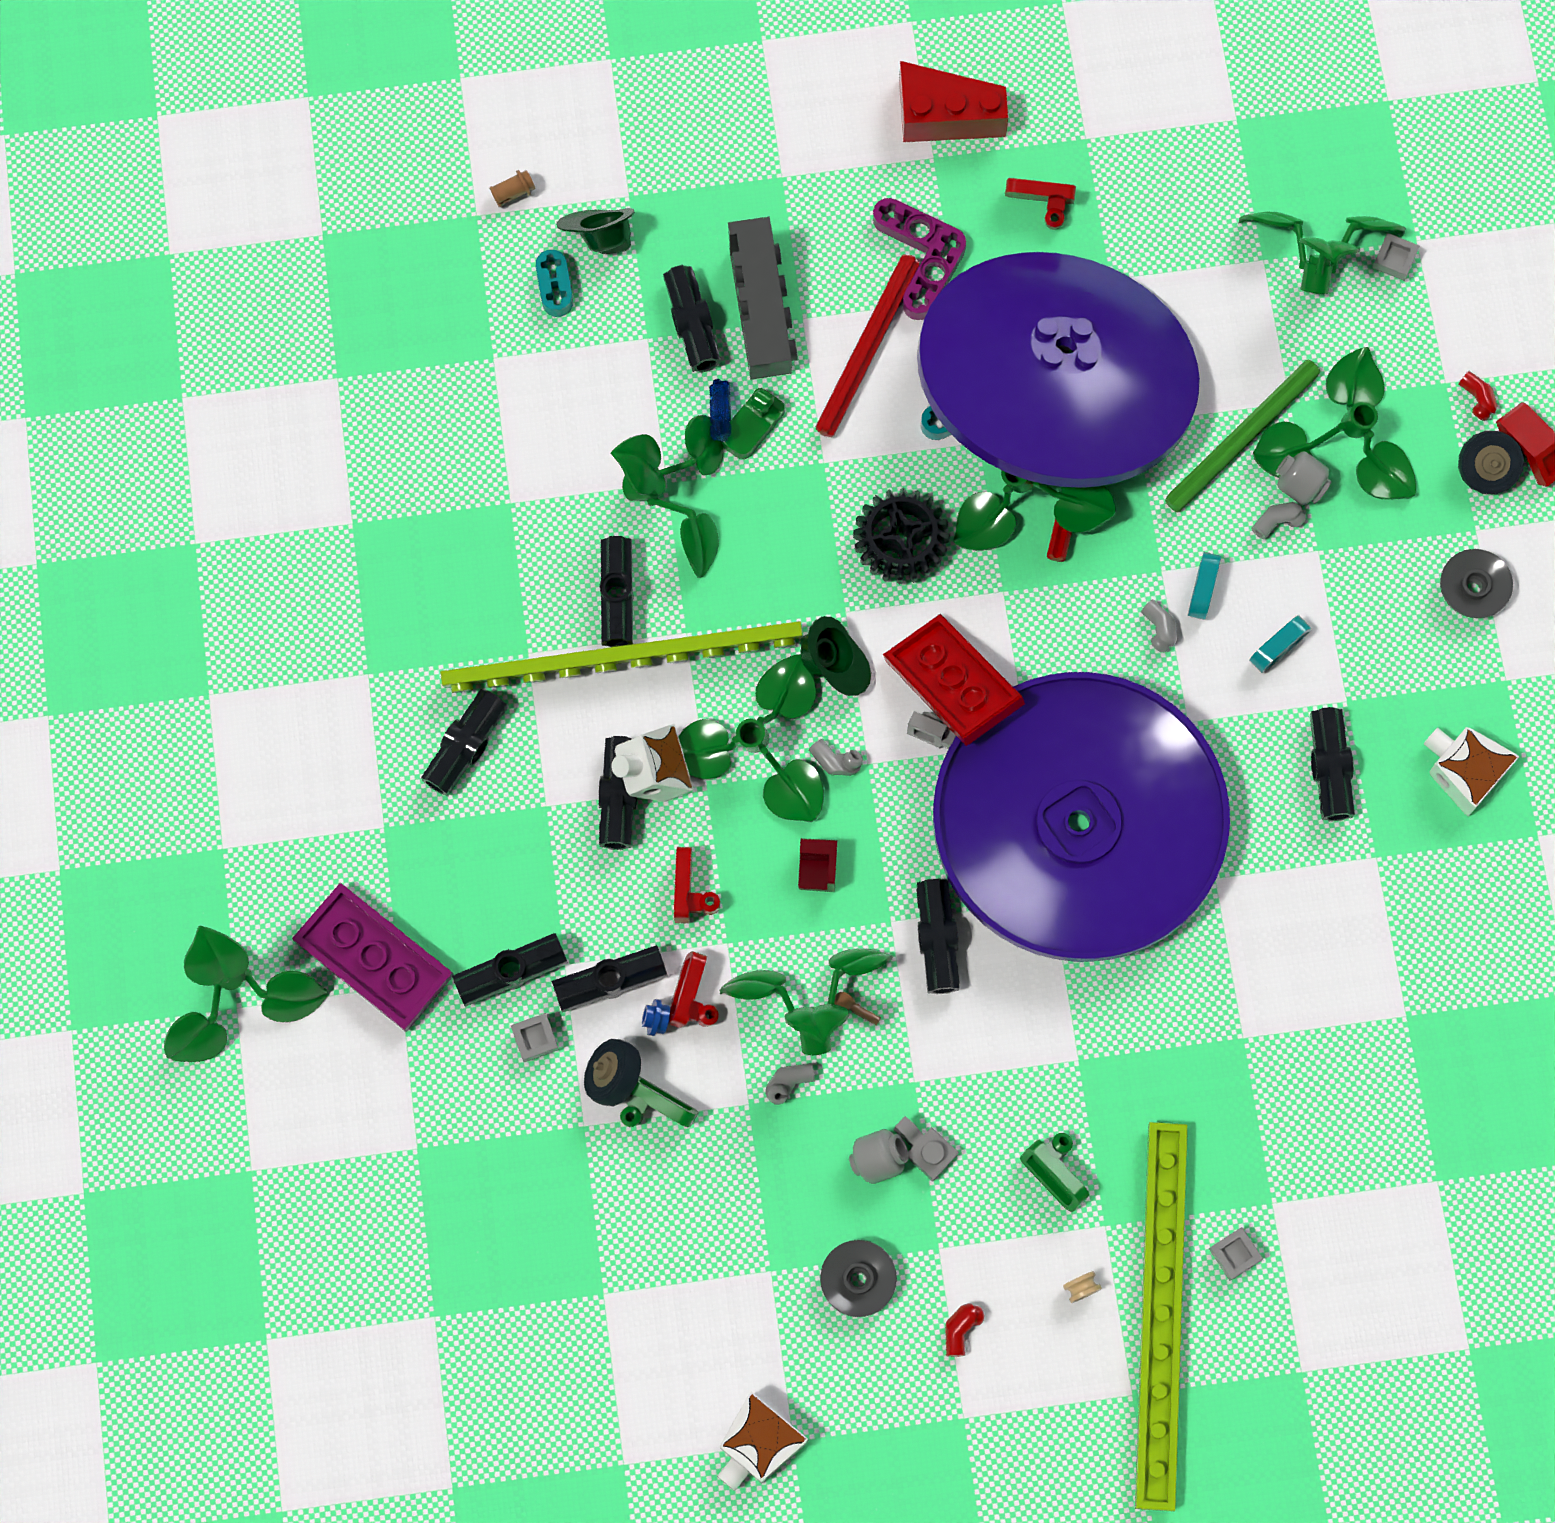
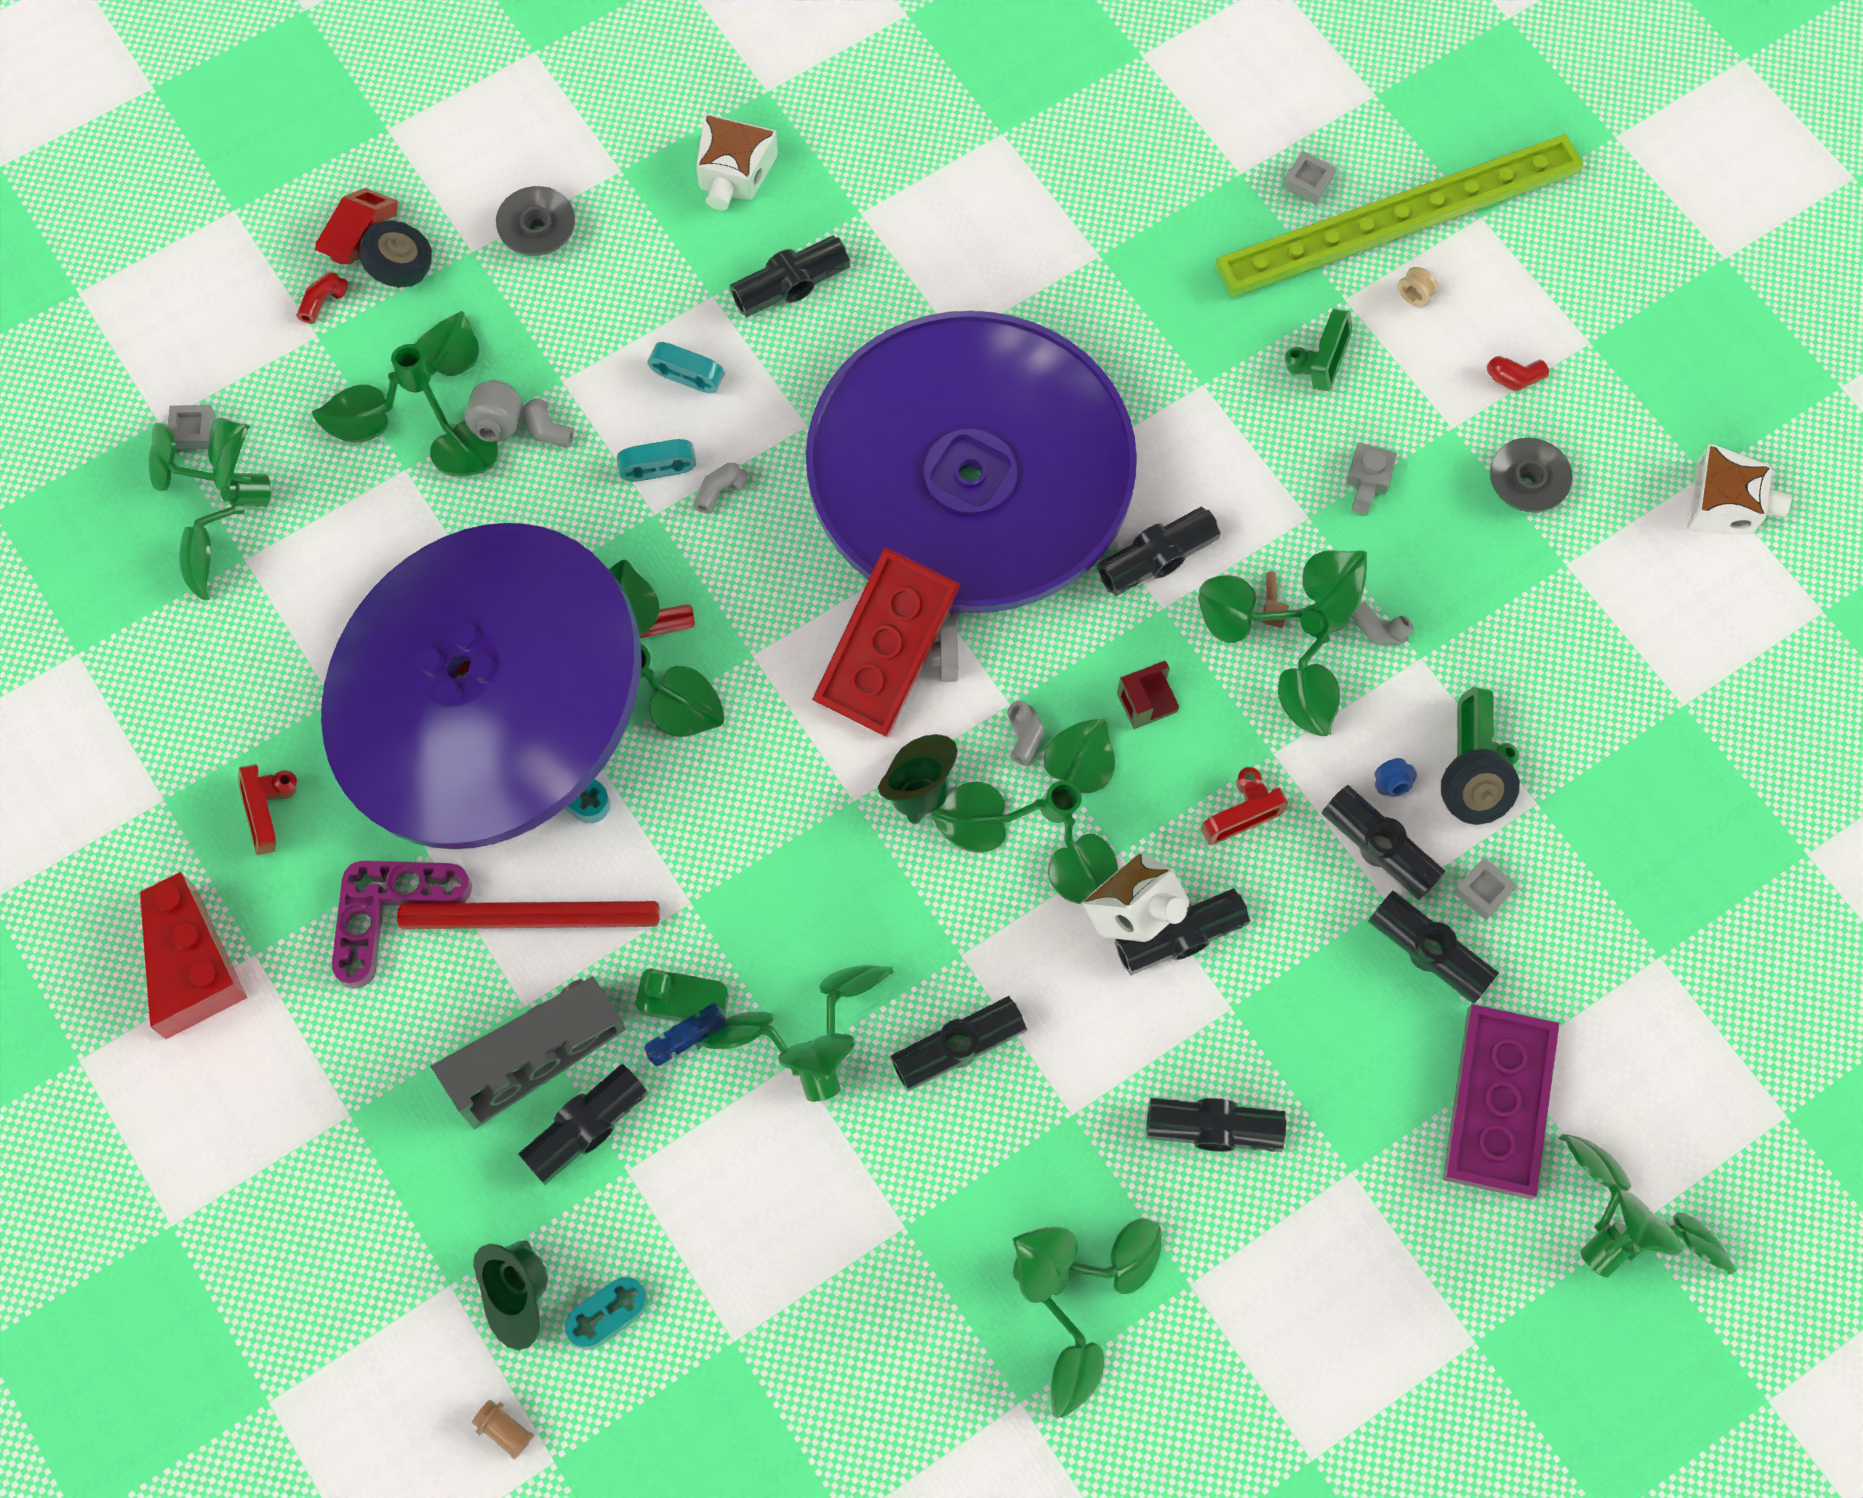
camera: 120 degrees left, 5 degrees down
(422, 566) = (1042, 1271): none -> green plant
(606, 659) = (1041, 1016): lime plate -> none
(683, 1004) = (1350, 759): red piece -> none
(879, 1156) = (1407, 506): light grey head -> none
(889, 541) = (767, 750): black gear -> none
(1242, 435) = (463, 493): bright green axle -> none

